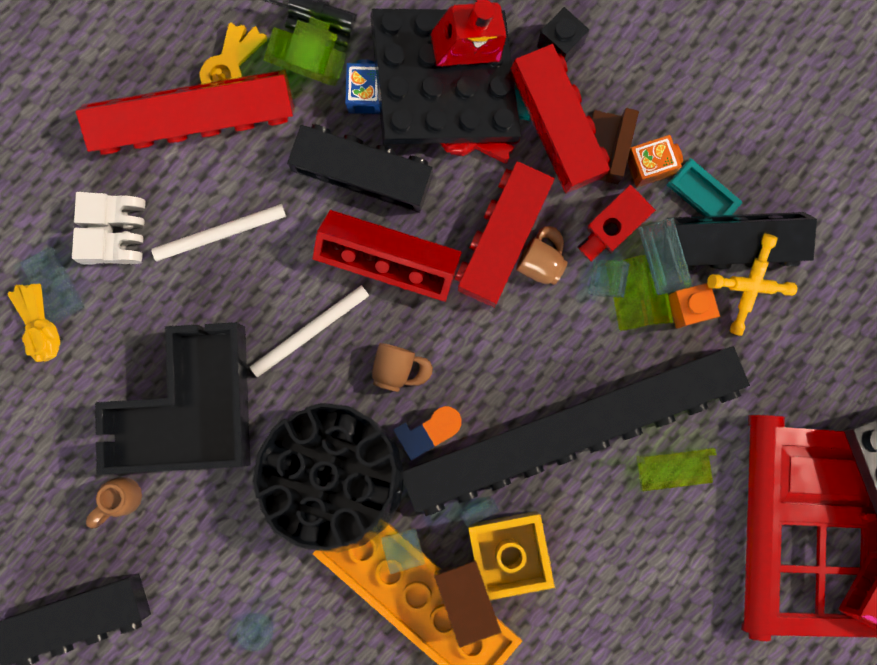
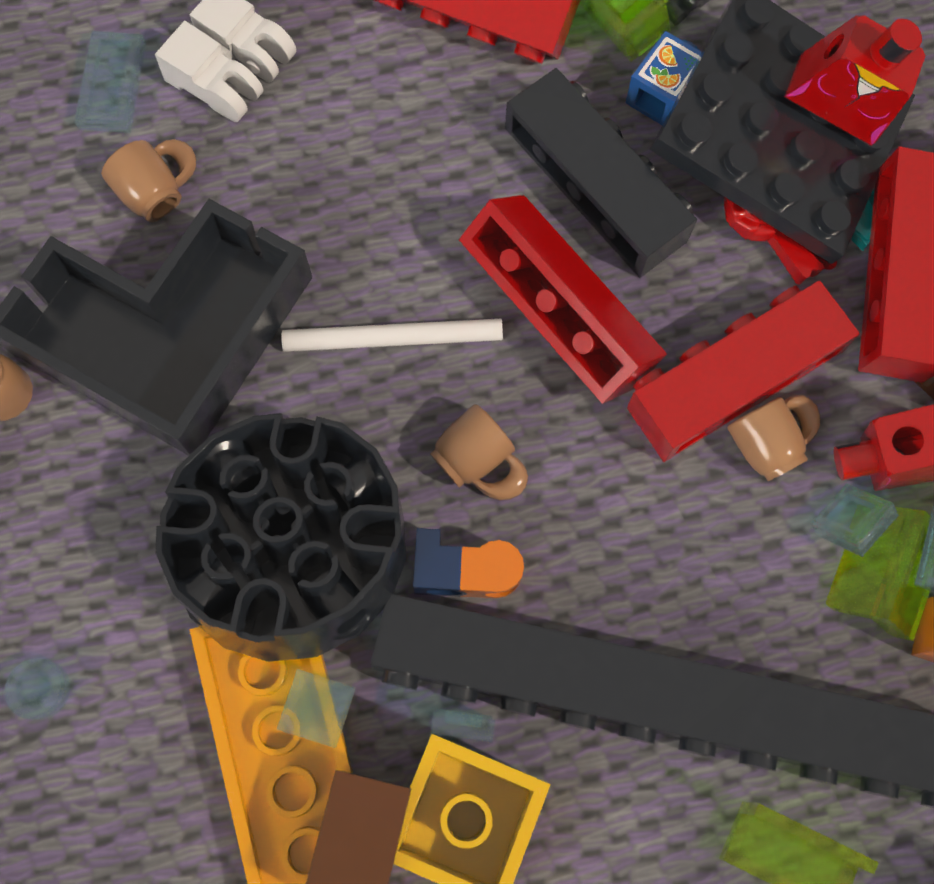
camera: 30 degrees right, 10 degrees down
(40, 334) = (52, 126): yellow piece -> none
(117, 332) = (144, 179): none -> medium nougat piece
(218, 232) = (361, 144): white bar -> none

